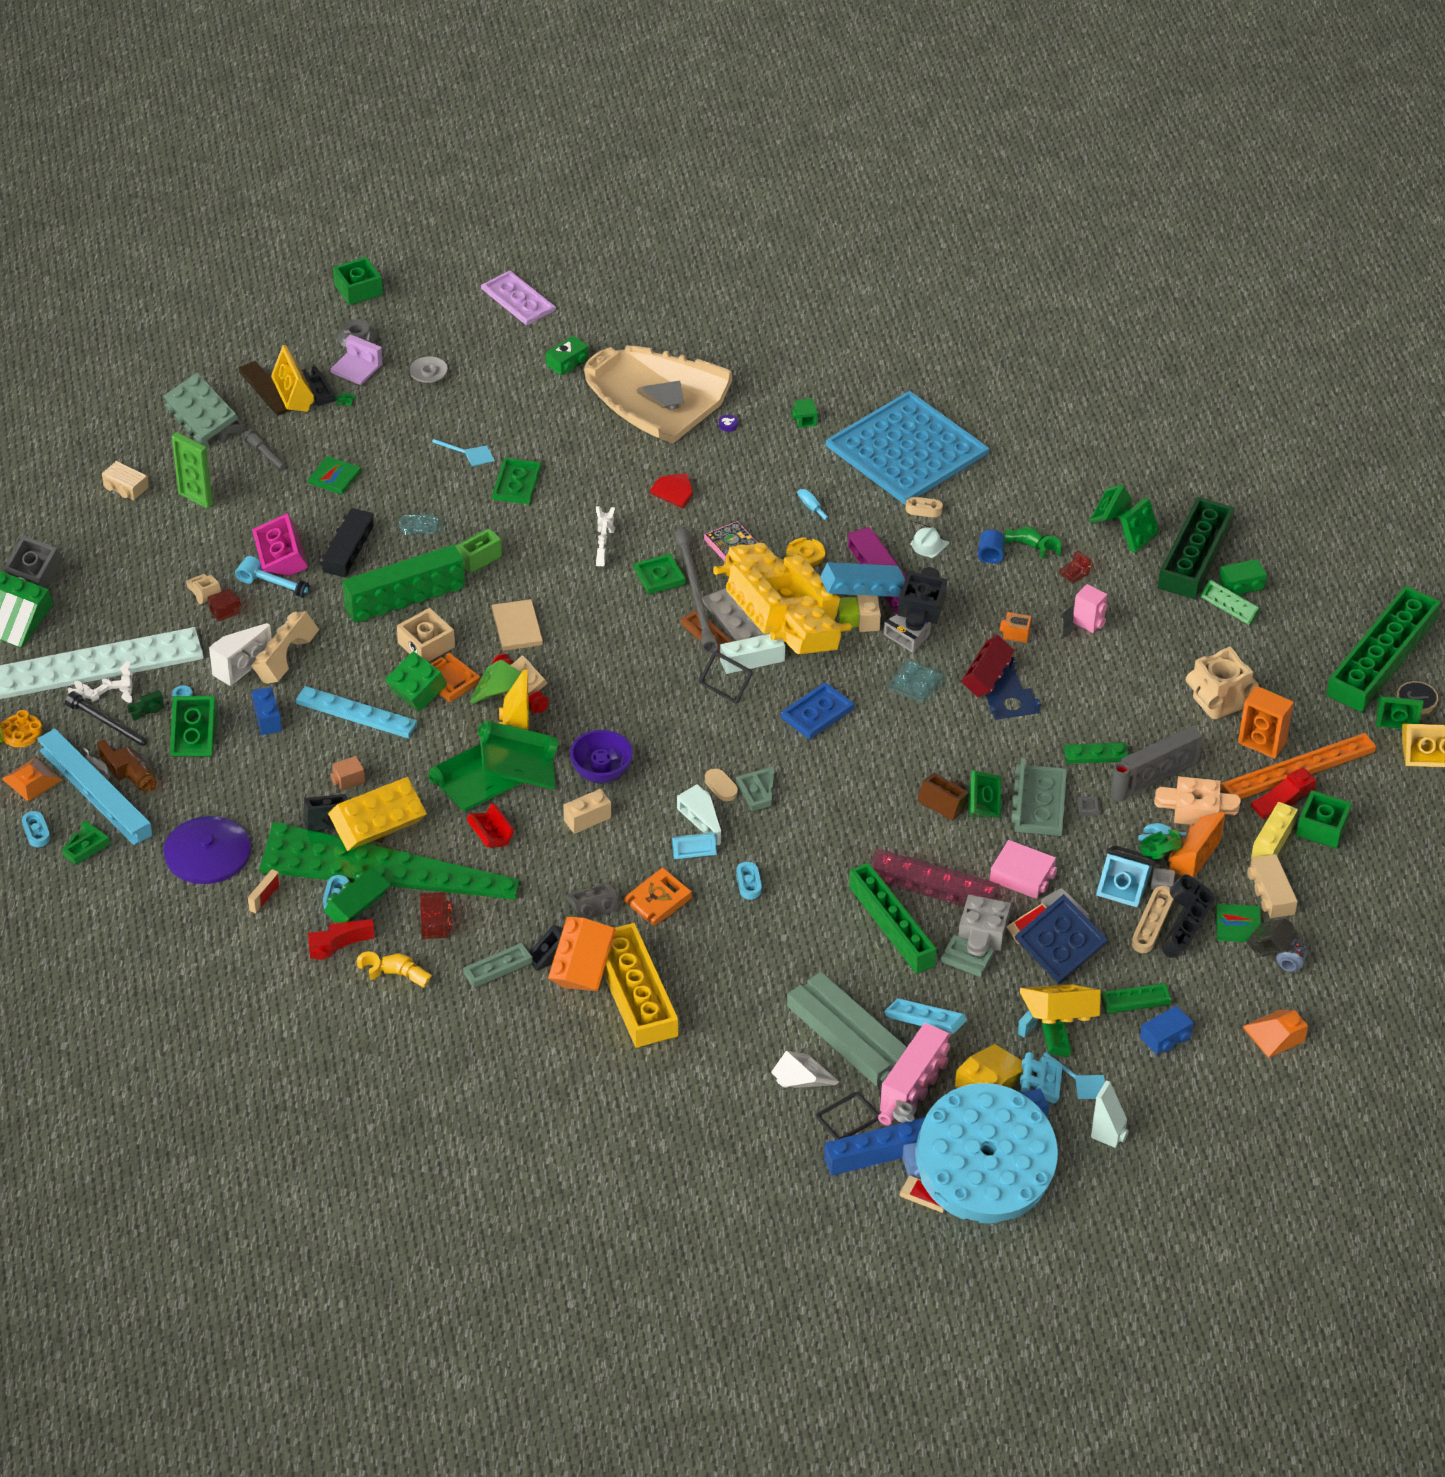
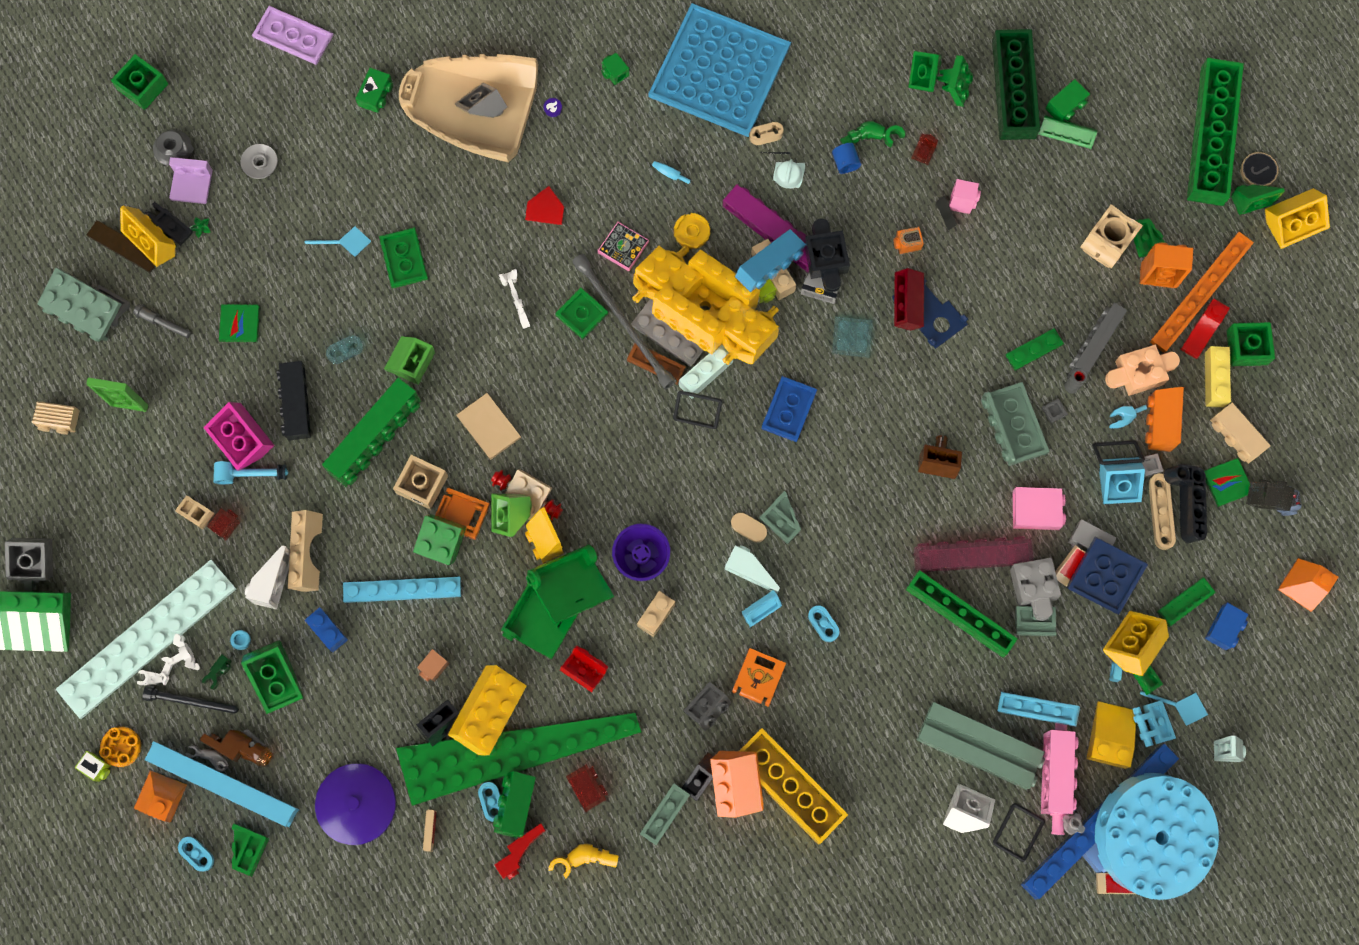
camera: 25 degrees left, 30 degrees up
(984, 795) = (974, 449): green slope -> none
(1158, 844) = (1144, 440): green plate -> none

